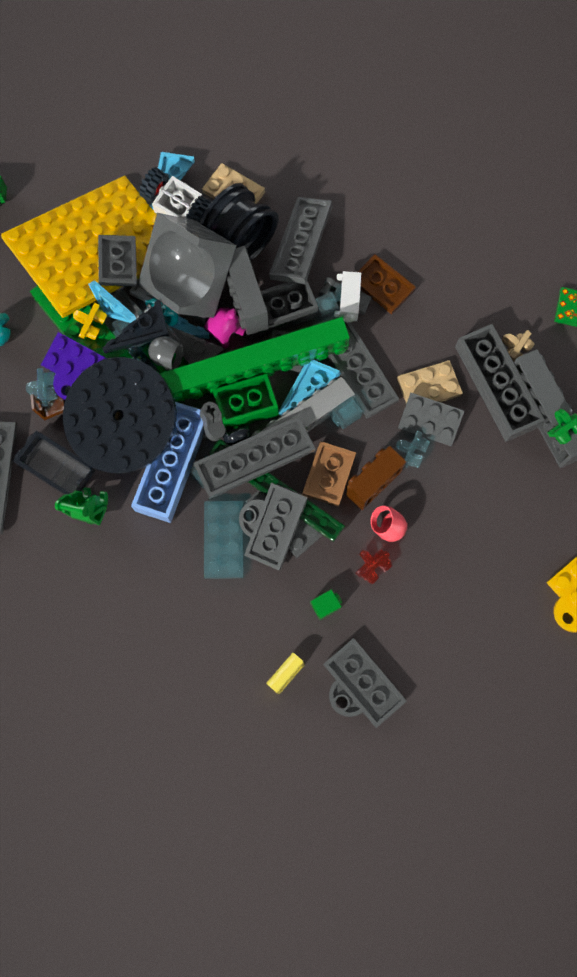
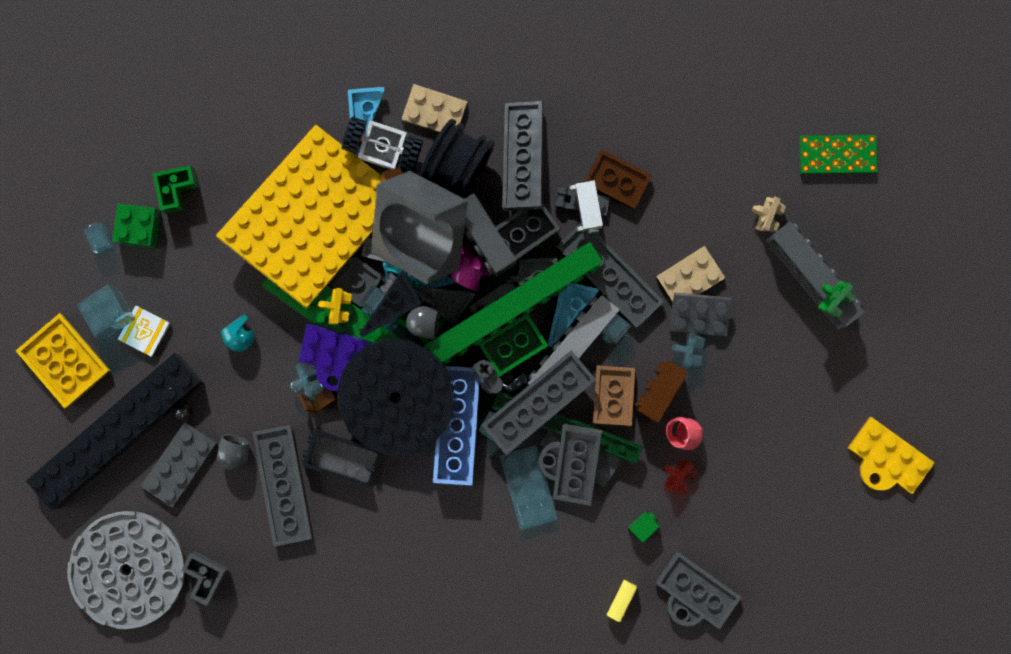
camera: 10 degrees left, 10 degrees up
(84, 507) = (386, 493): green piece -> none
(110, 304) = (354, 286): medium azure wing -> none
(117, 260) = (343, 232): dark grey plate -> none
(327, 303) = (567, 219): clear light blue brick -> none
(499, 383) = (759, 259): dark grey brick -> none

